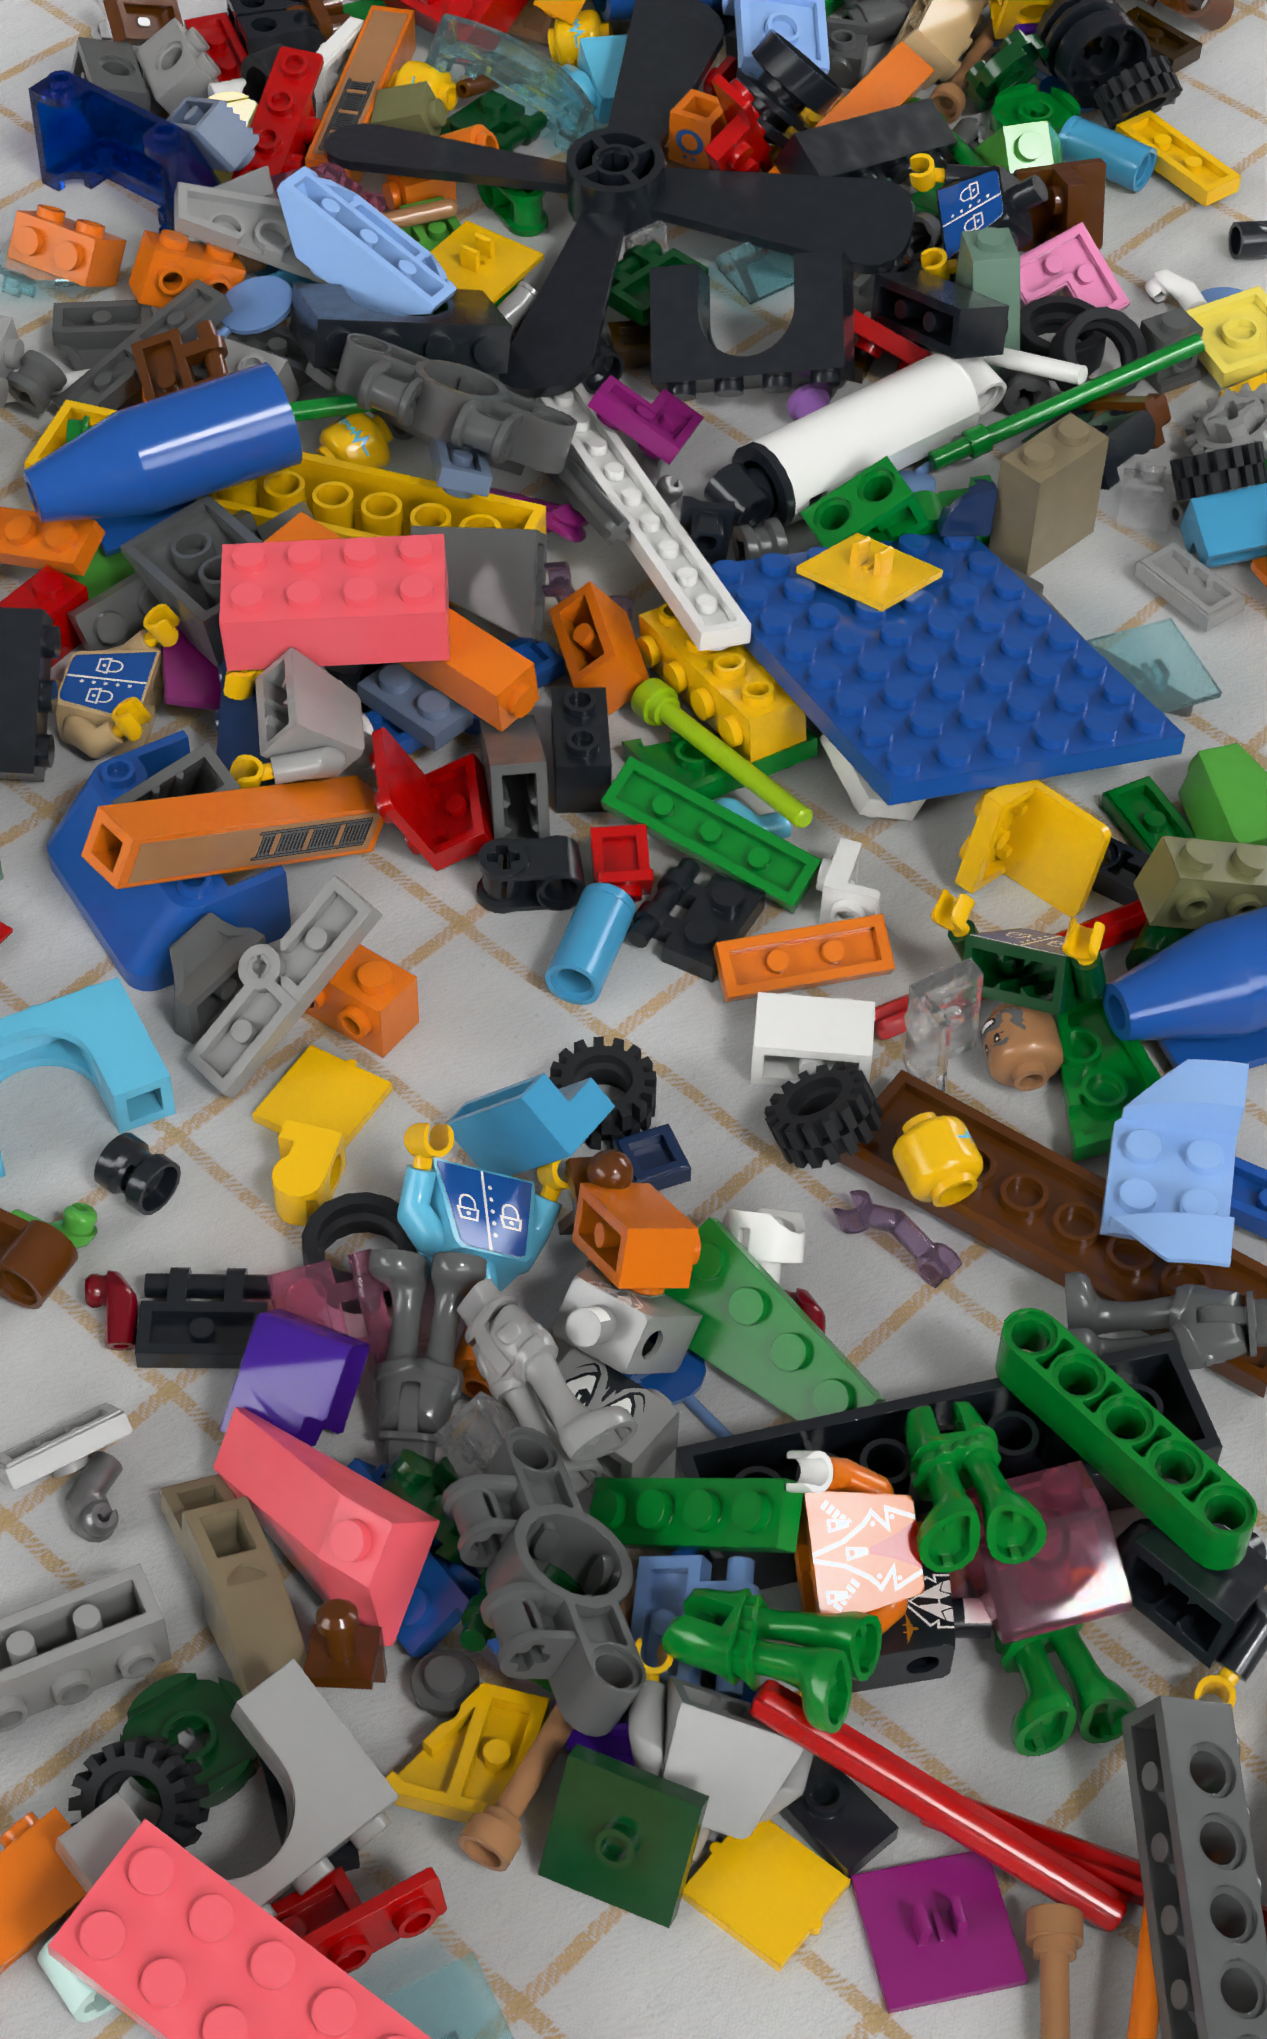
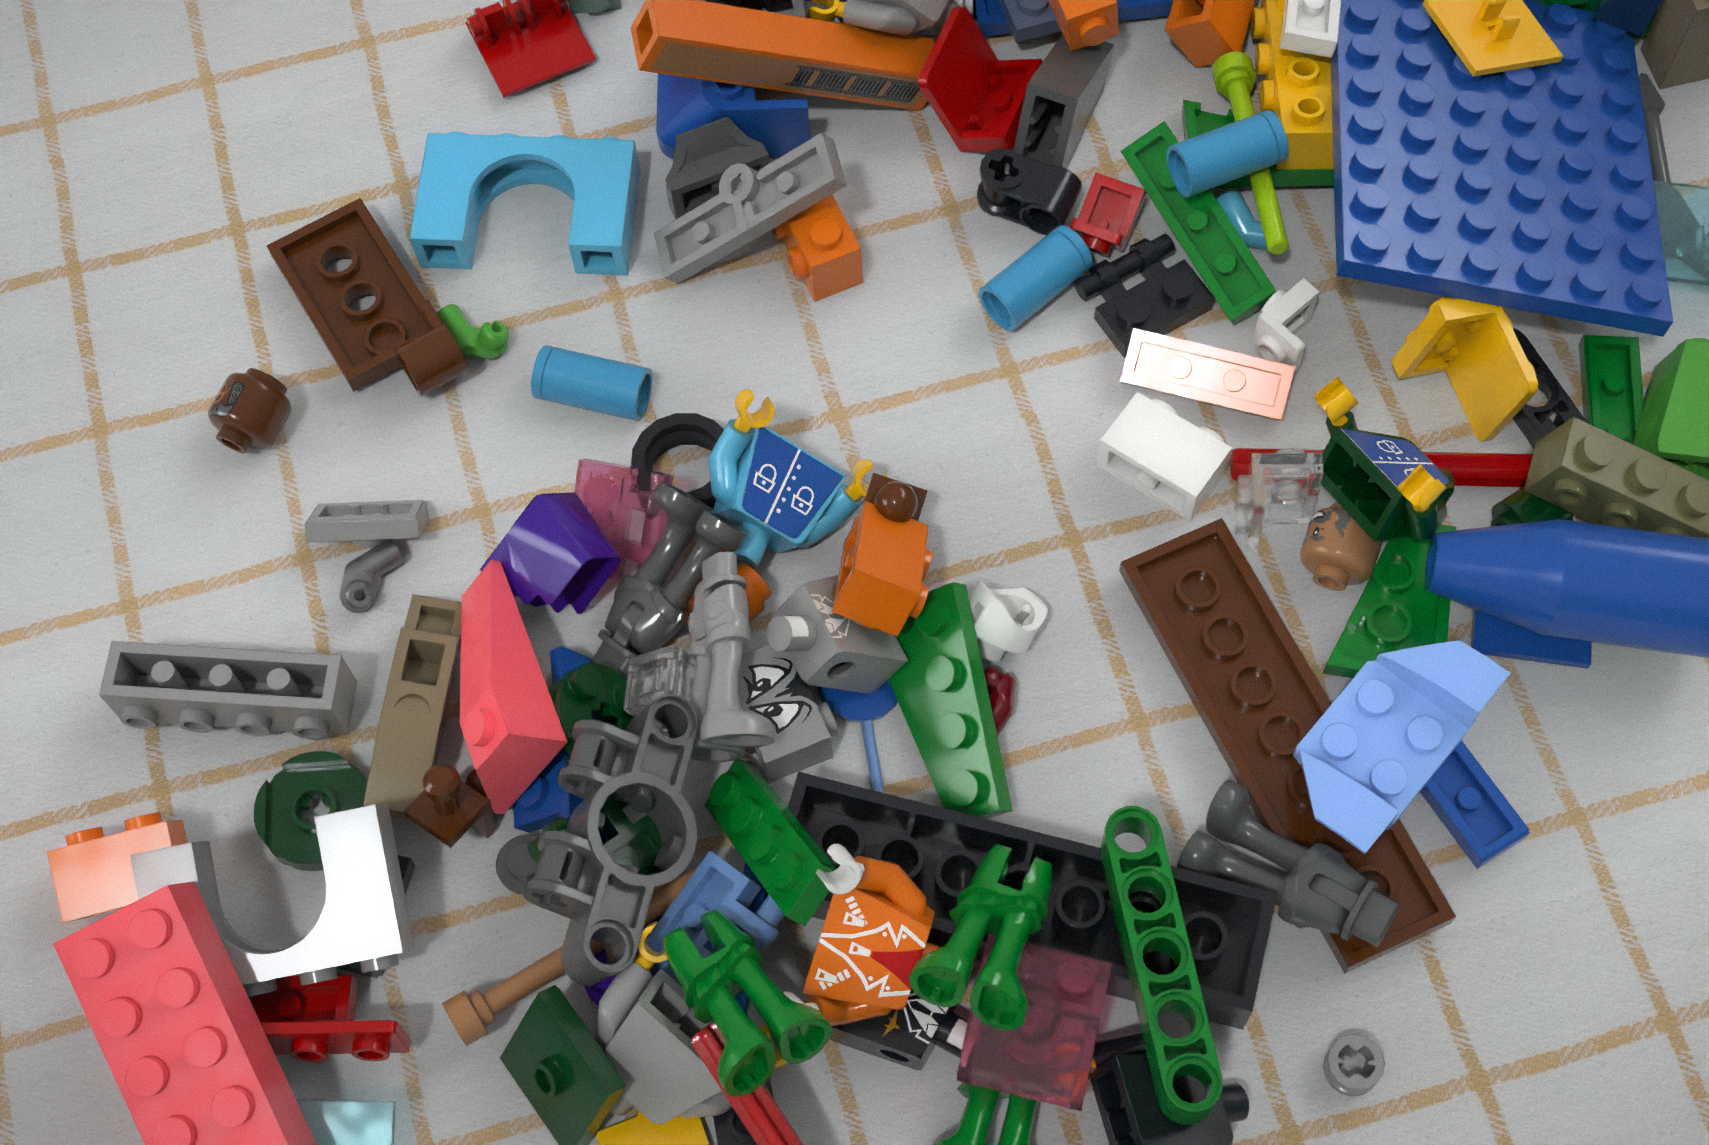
camera: 35 degrees right, 15 degrees up
(121, 1308) = (482, 412): dark red arm -> none
(141, 1176) = (555, 312): black wheel -> none
(161, 1766) = (262, 838): black tyre -> none
(198, 1332) = (518, 473): black plate -> none
(215, 1217) = (591, 383): none -> dark azure pin
(307, 1169) = (687, 378): yellow leg -> none
(324, 1093) = (742, 319): yellow piece -> none
(472, 1755) = (497, 939): yellow wing -> none
(528, 1123) = (865, 428): dark azure piece -> none
(580, 749) = (1139, 90): black brick -> none
(615, 1068) = (965, 391): black tyre -> none
(655, 1157) = (967, 497): dark blue tile -> none
(710, 757) = (1227, 153): none -> dark azure pin
(823, 1115) = (1123, 530): black tyre -> none
(933, 1260) = (1137, 699): clear purple arm -> none
(937, 1159) = (1187, 620): yellow head -> none

